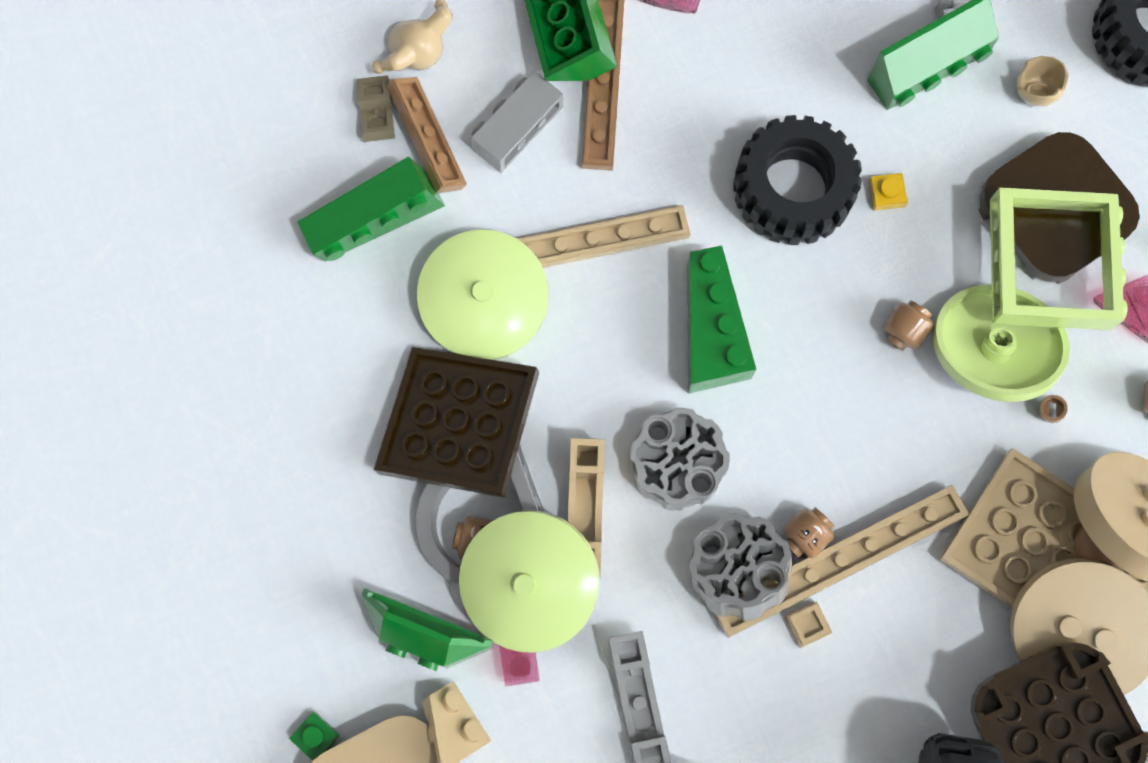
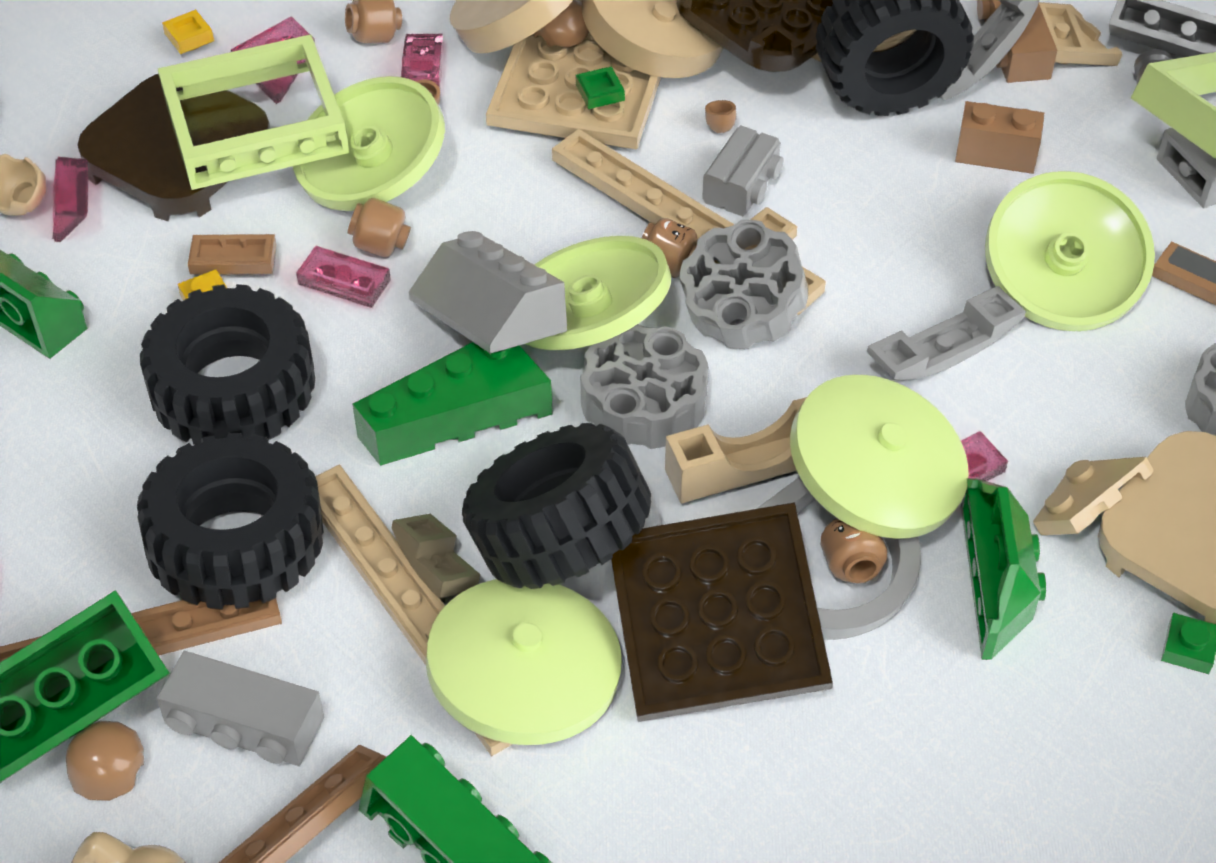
camera: 110 degrees left, 25 degrees down
(516, 43) = (104, 760): none -> medium nougat hair
(543, 359) = (557, 505): none -> black tyre
(587, 269) = (431, 554): none -> dark tan slope
(665, 107) = (237, 562): none -> black tyre
(775, 447) = (607, 286): none -> yellowish green dish
(787, 365) = (490, 293): none -> light grey slope
(868, 287) = (343, 276): none -> clear pink plate
(876, 629) = (742, 171): none -> light grey brick
(920, 218) = (232, 254): none -> medium nougat plate
(956, 641) = (720, 115): none -> medium nougat hinge
(1009, 548) = (600, 87): none -> green tile
(1020, 117) = (69, 195): none -> clear pink slope
(1103, 422) = (423, 57): none -> clear pink slope

